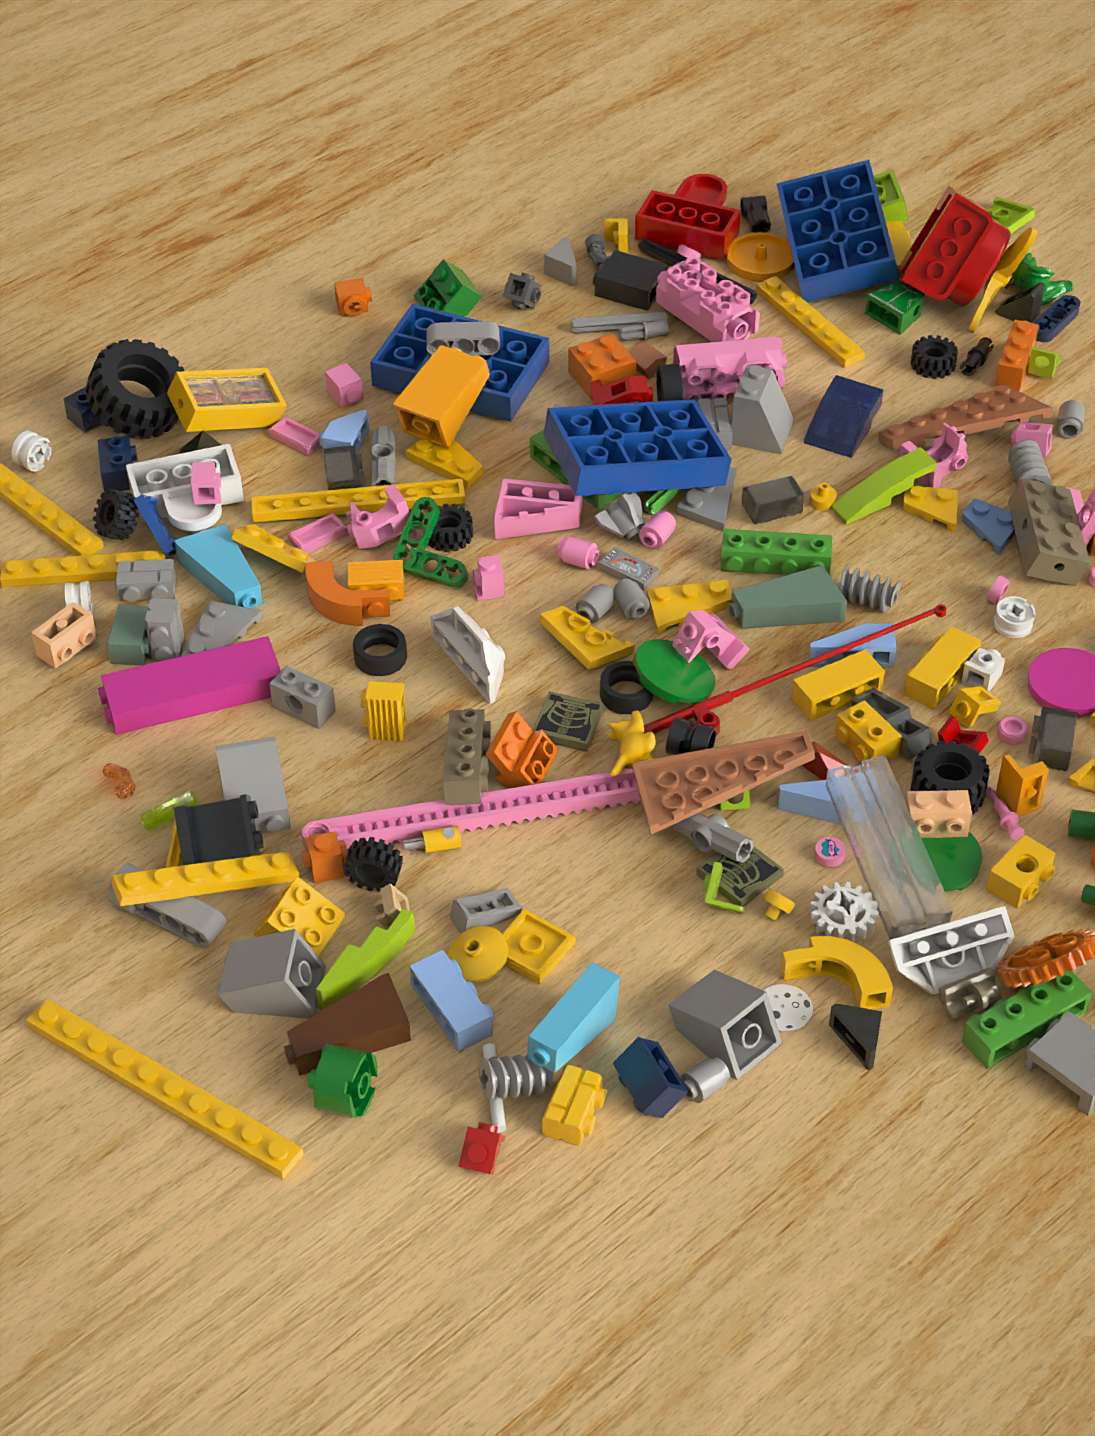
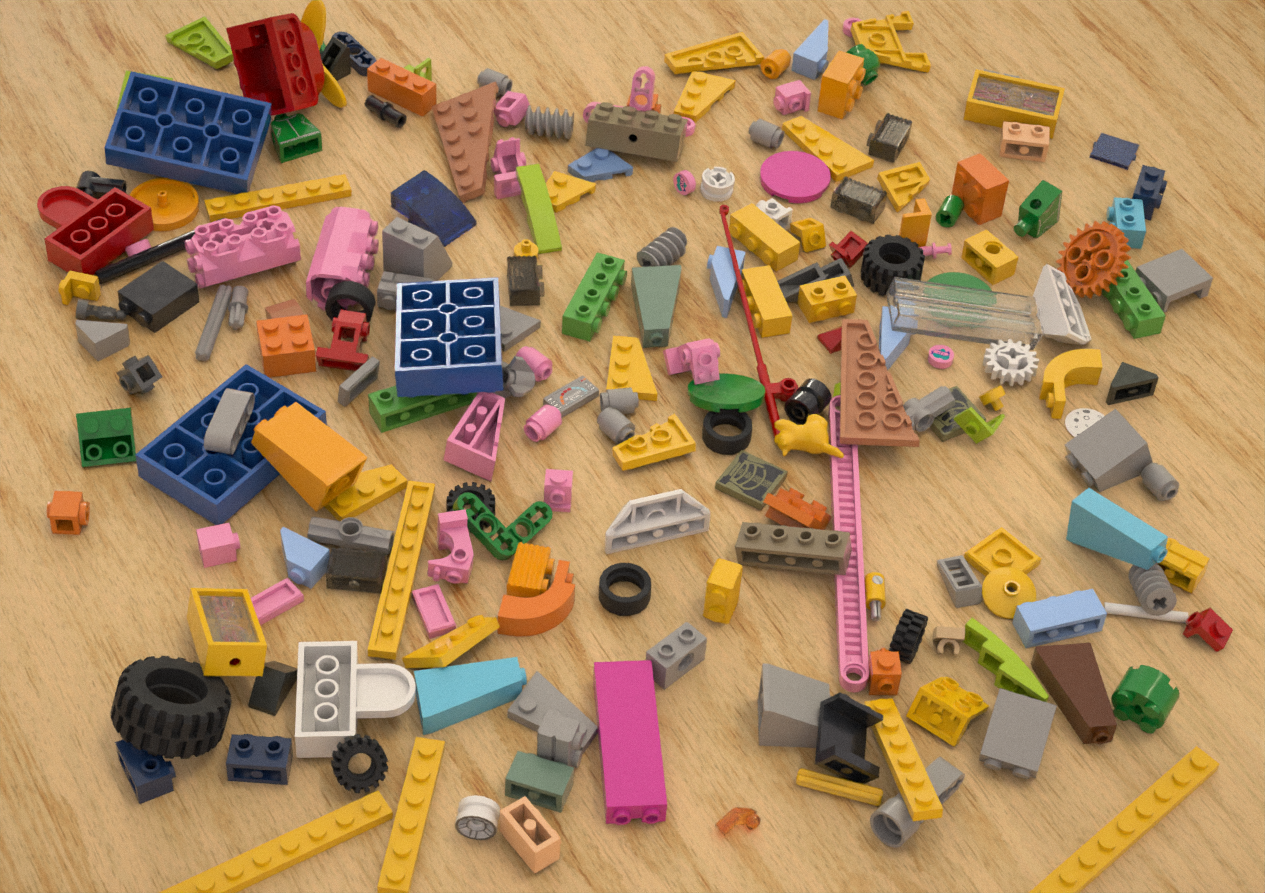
camera: 80 degrees left, 0 degrees up
(30, 451) = (207, 833): white wheel -> none
(146, 507) = (409, 730): blue piece -> none
(146, 579) = (460, 758): light grey brick -> none
(166, 811) = (787, 787): clear neon green axle -> none
(205, 483) = (370, 664): bright pink brick -> none
(649, 1078) = (1163, 508): dark blue brick -> none
(934, 356) = (366, 142): black tyre -> none
(940, 813) = (937, 268): light nougat brick -> none
(970, 993) = (1106, 312): dark tan hips -> none
(1012, 730) = (836, 223): bright pink tile -> none

